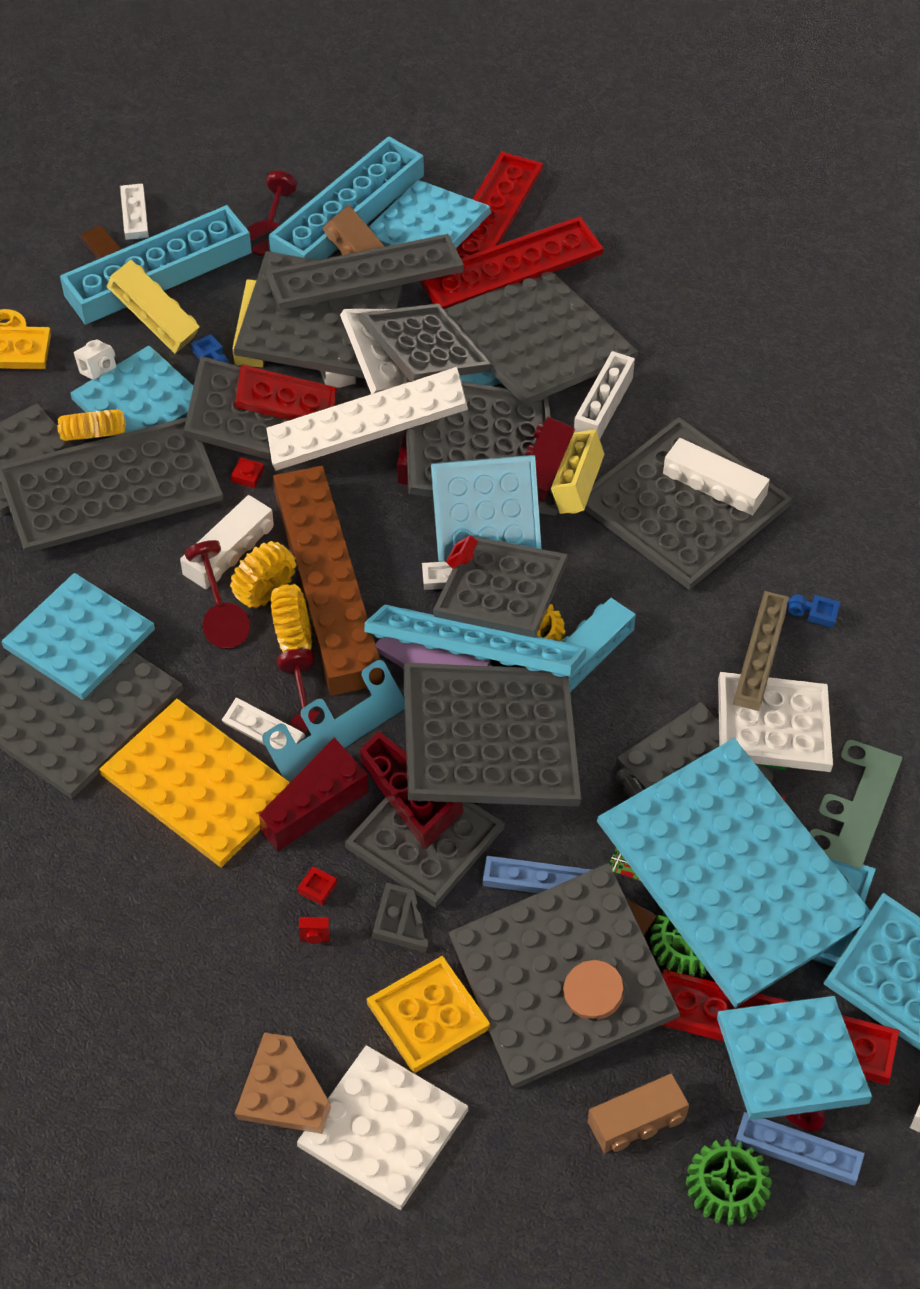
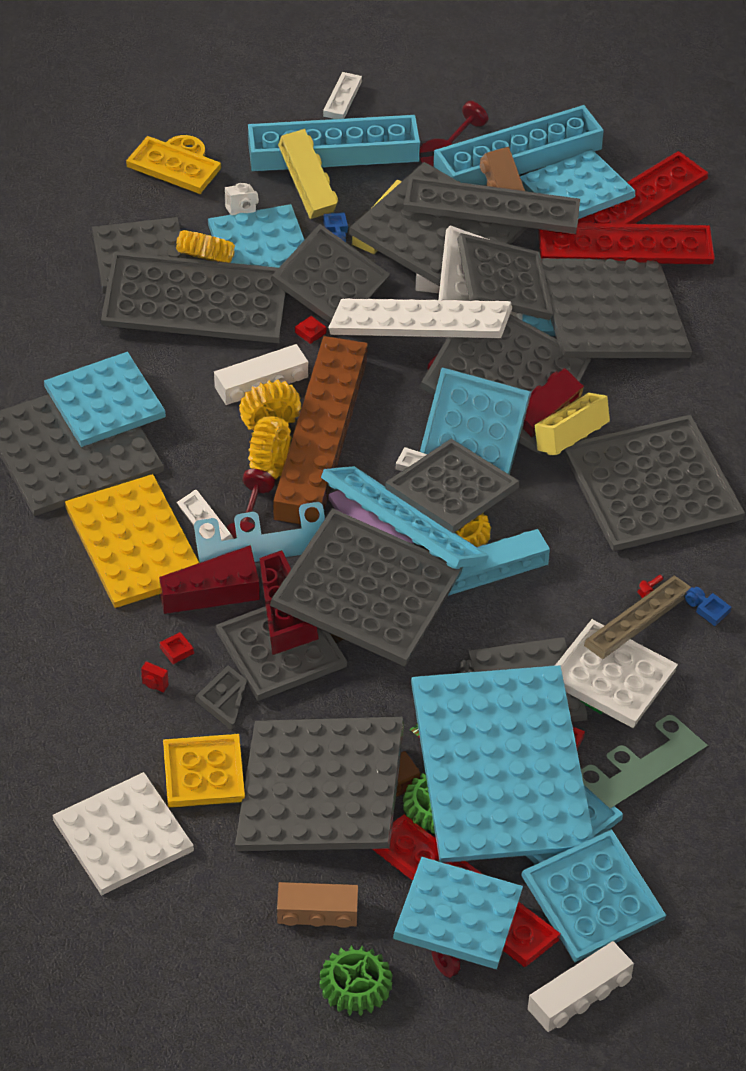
camera: 25 degrees right, 5 degrees down
(99, 242) = (301, 109): reddish brown tile -> none
(225, 623) = (224, 434): dark red piece -> none
(281, 394) = (369, 277): red tile -> none
(283, 1089) = (64, 774): medium nougat plate -> none
(462, 552) = (434, 448): red plate -> none
(526, 875) = (336, 702): medium blue plate -> none
(593, 990) = (332, 799): nougat tile -> none
(605, 394) = (637, 375): white brick -> none
(716, 476) = (687, 470): white brick -> none
(745, 616) = (647, 587): none -> red hand
(800, 1149) = (427, 983): medium blue plate -> none

